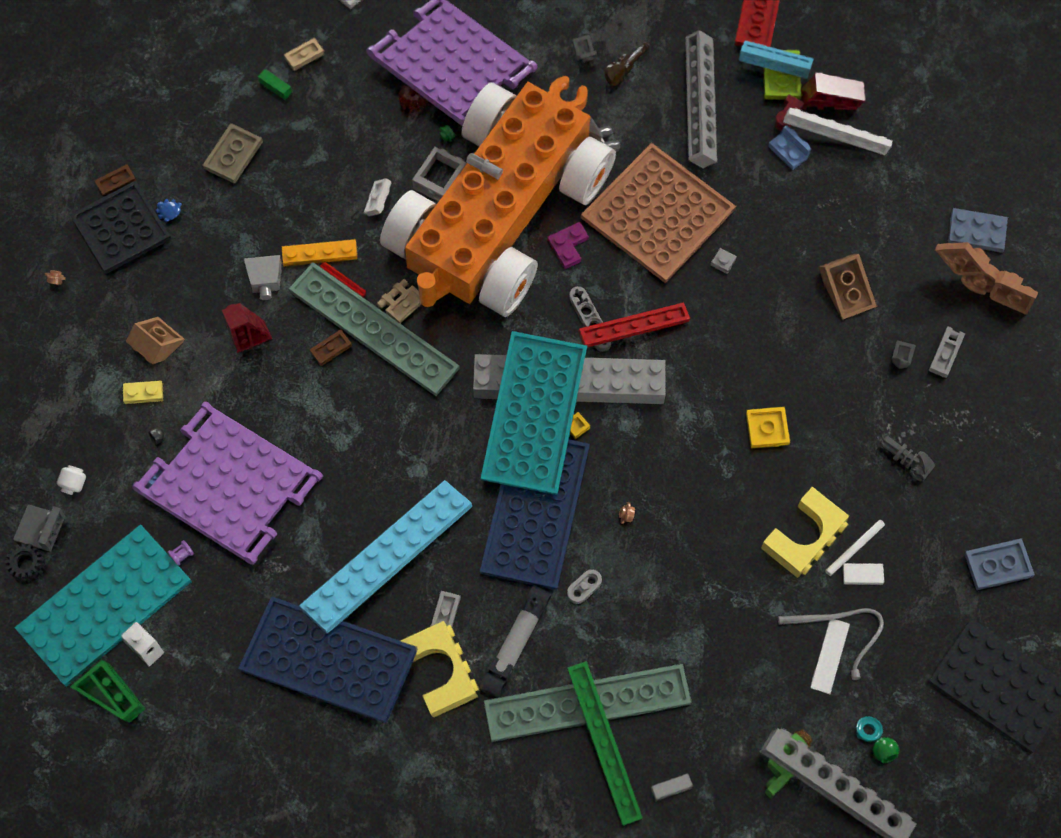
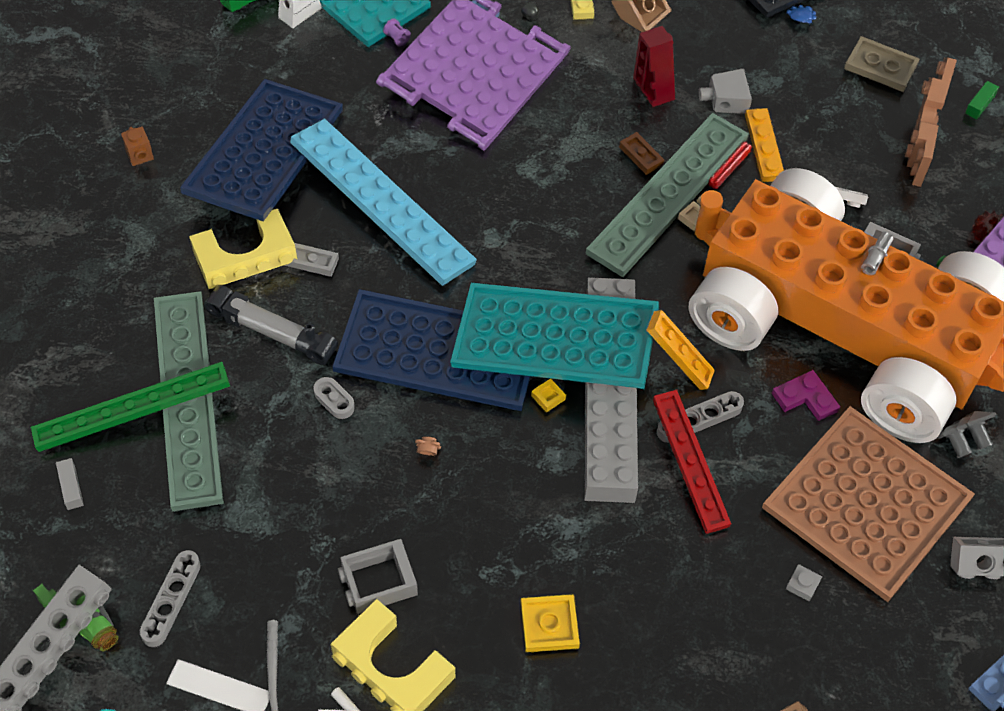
camera: 90 degrees right, 10 degrees down
(293, 113) = (926, 126): none -> nougat plate
(319, 776) = (137, 145): none -> dark orange brick
(546, 322) = (680, 349): none -> light orange plate
(734, 526) = (372, 556): none -> light grey window
(763, 700) = (174, 599): none -> light grey beam

